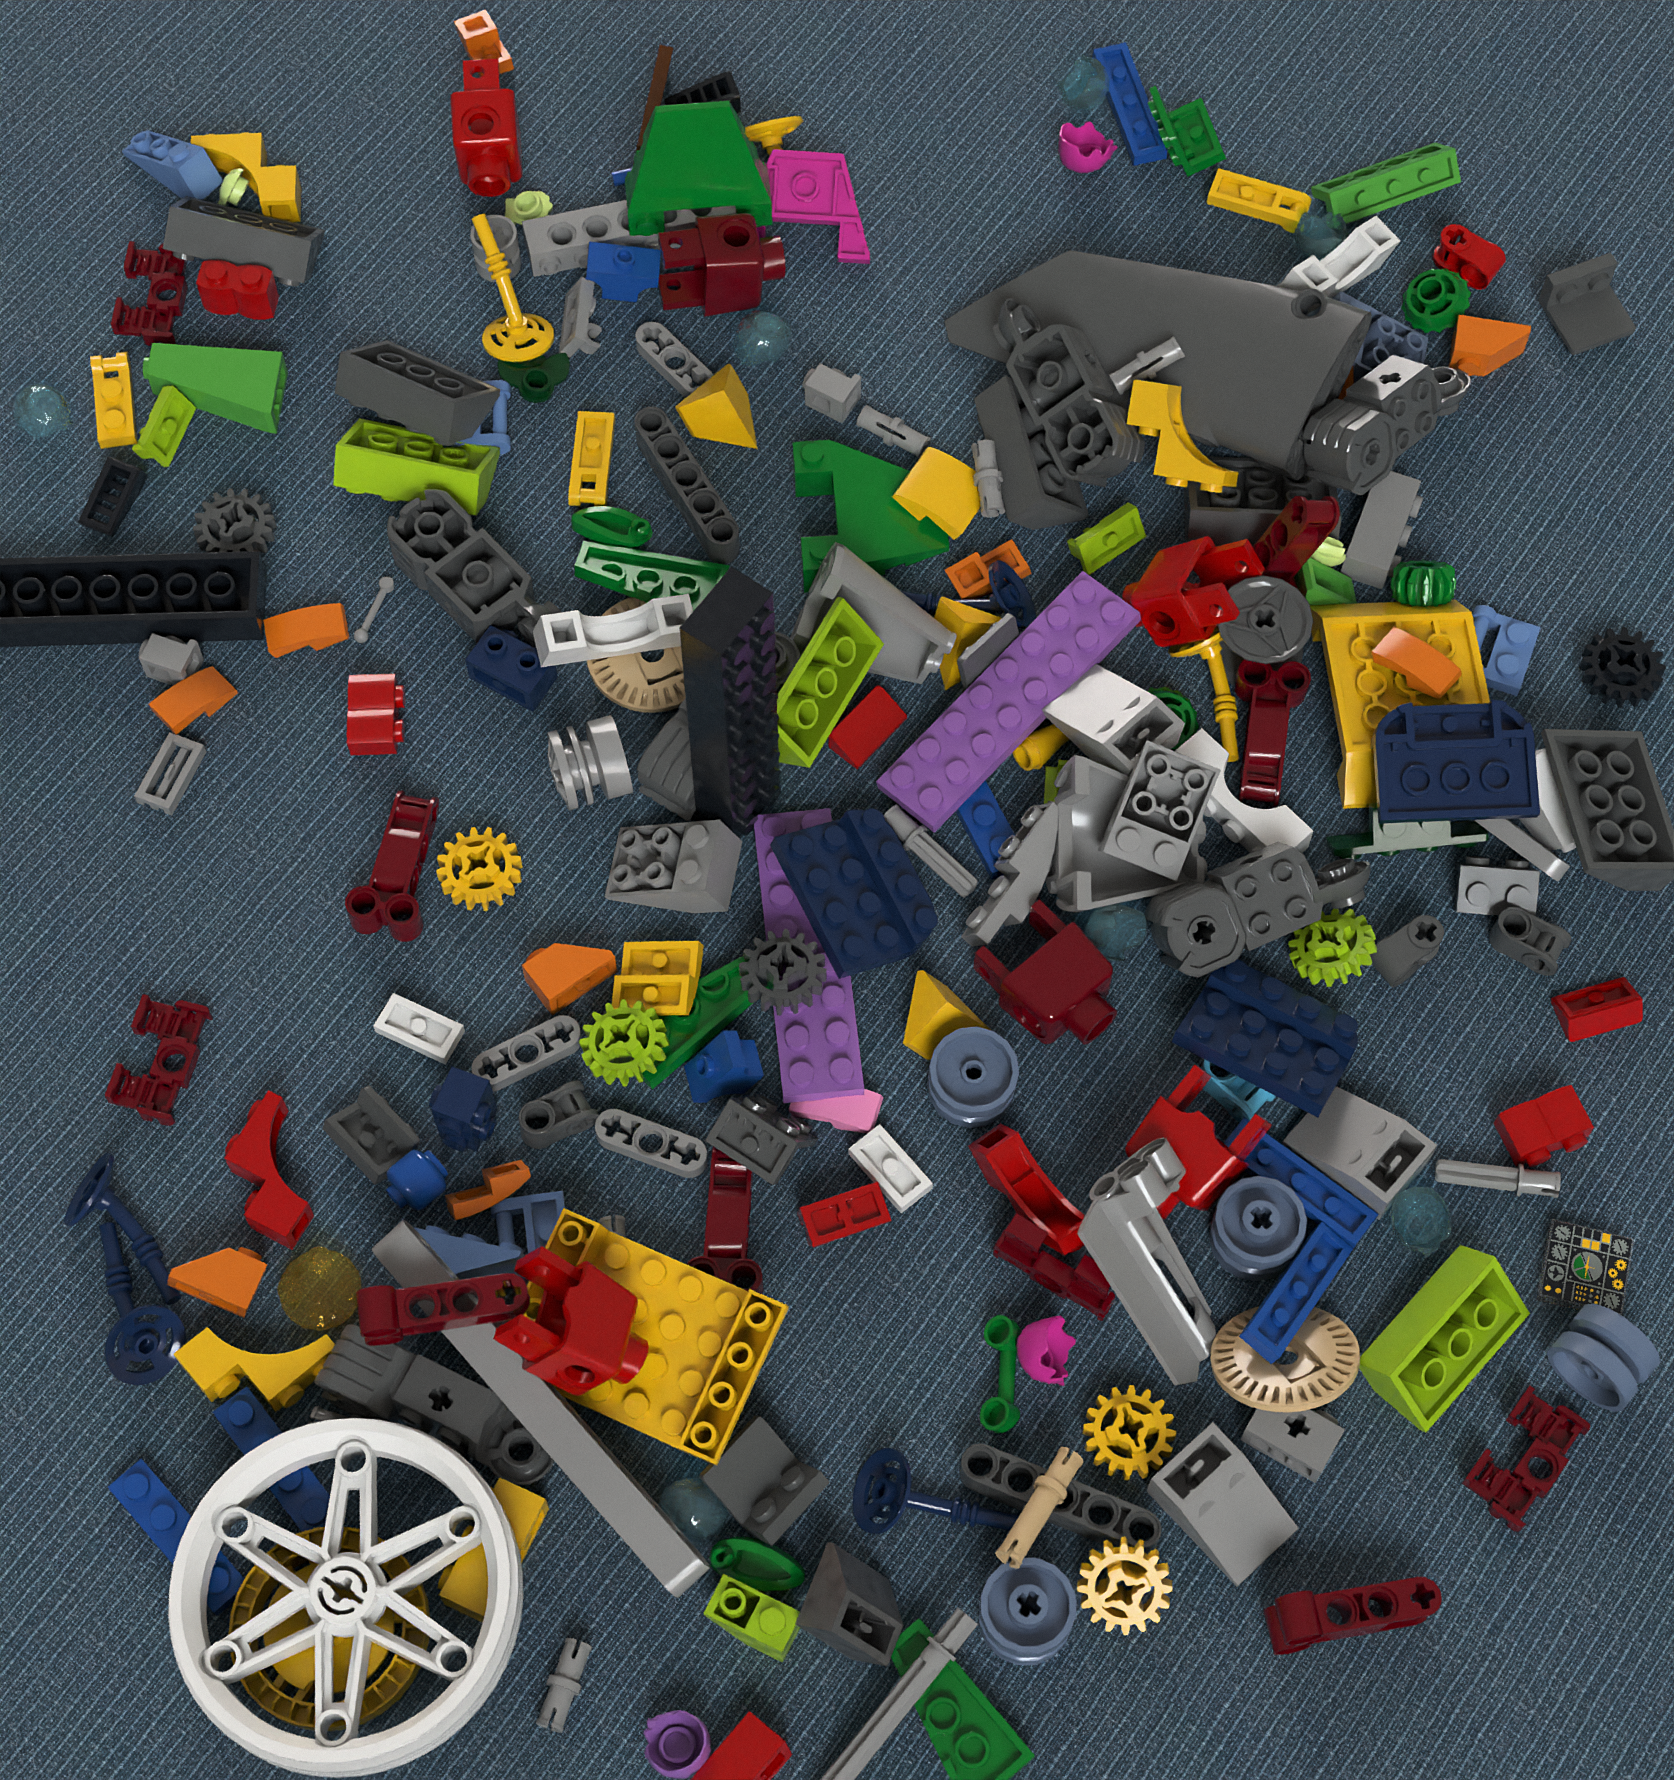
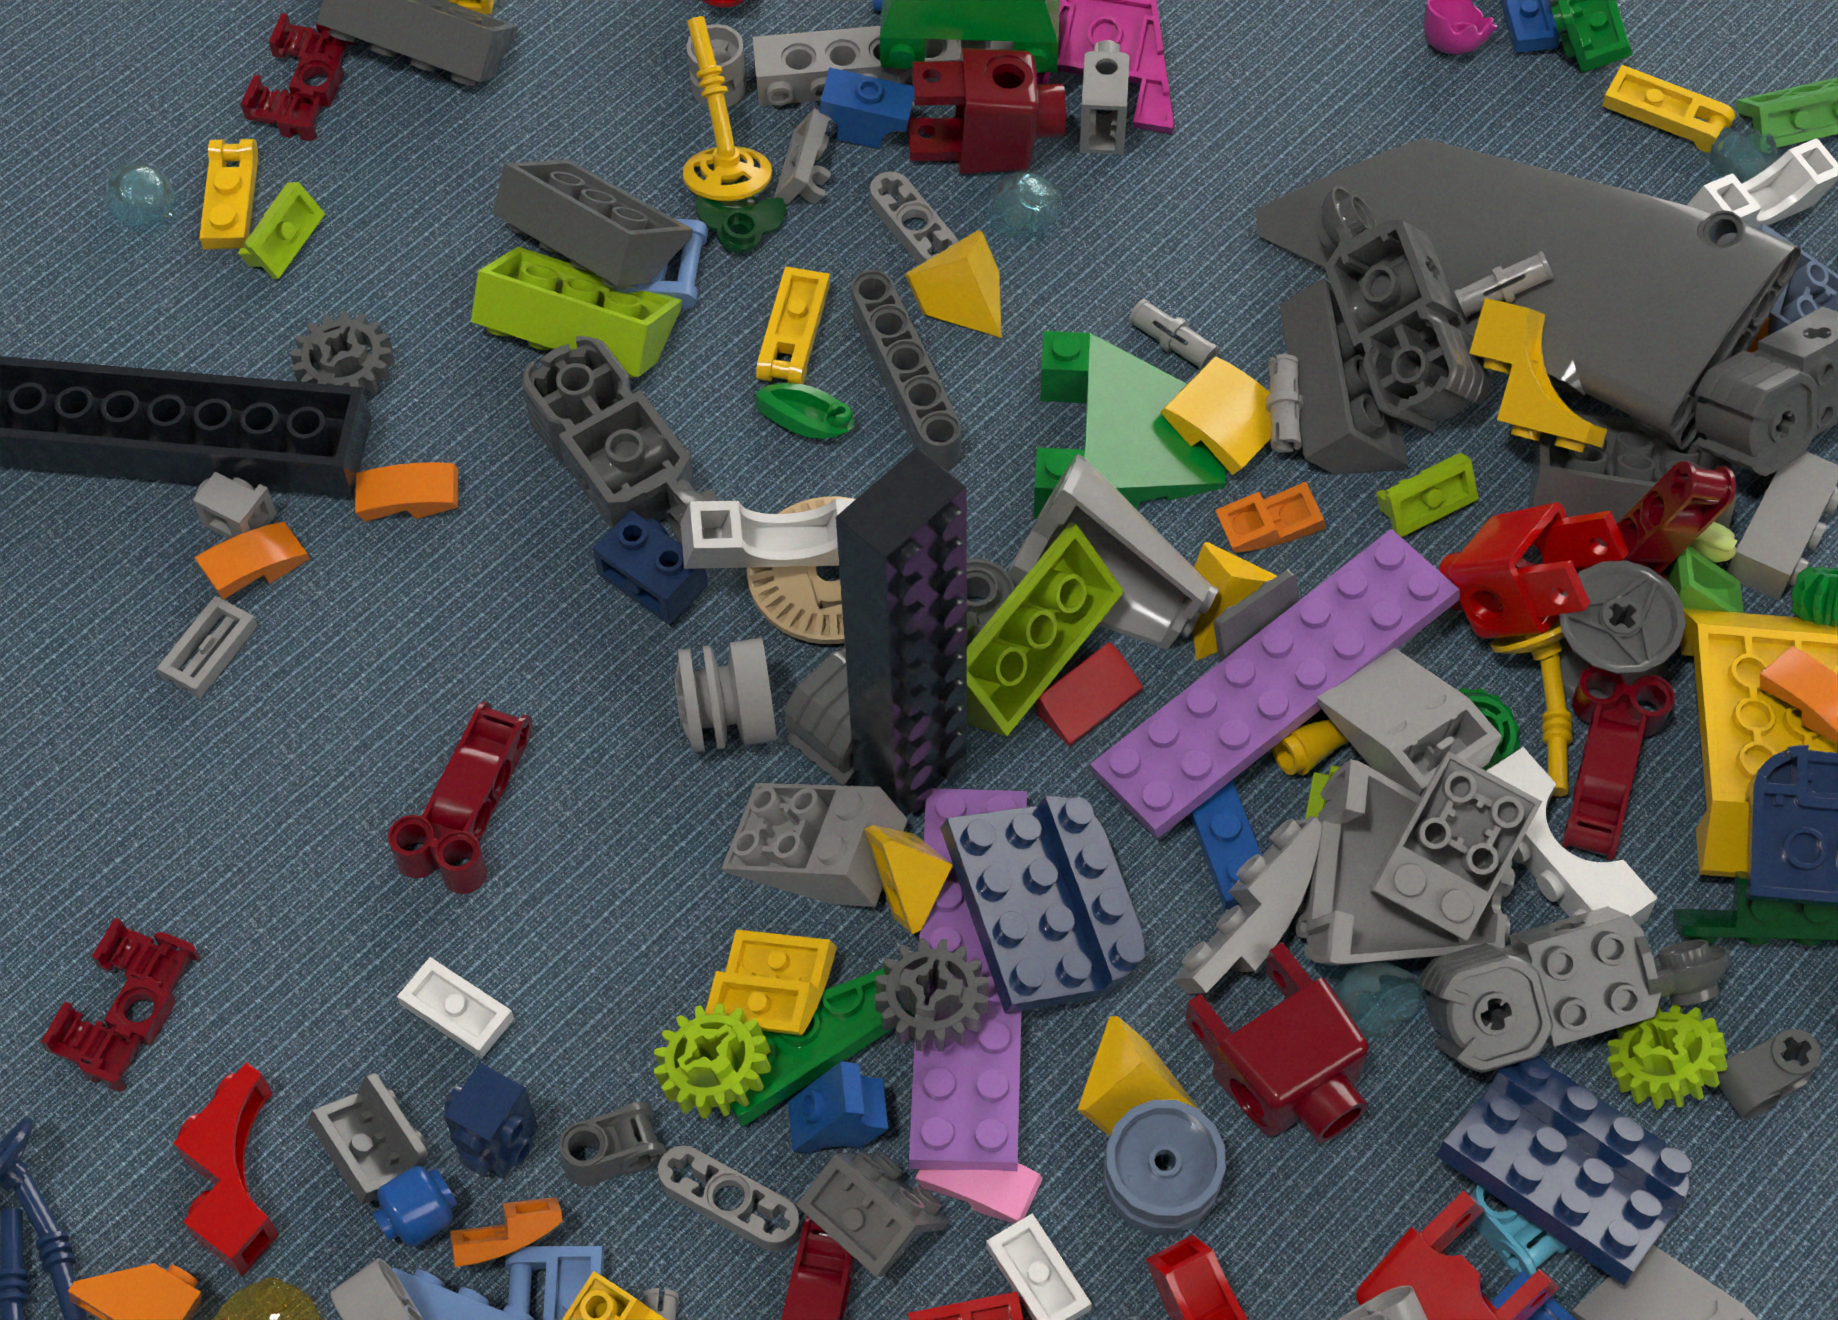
camera: 10 degrees right, 5 degrees down
(106, 480) = (199, 287): black slope -> none
(222, 381) = (362, 185): bright green slope -> none
(238, 289) = (399, 81): red brick -> none
(373, 714) = (470, 604): red brick -> none
(386, 585) = (515, 450): light grey hinge -> none
(477, 853) = (566, 818): yellow gear -> none
(528, 206) = (764, 21): yellowish green animal -> none
(558, 1051) = (597, 1037): light grey beam -> none
(566, 973) = (656, 960): orange slope -> none
(646, 573) = (817, 464): green wing -> none
(750, 882) = (909, 873): none -> yellow slope
(813, 243) = (1106, 89): none -> light grey torso
(831, 392) = (1103, 278): light grey brick -> none
(930, 851) = (1148, 863): light grey axle -> none
(1006, 596) = (1286, 553): dark blue dish -> none

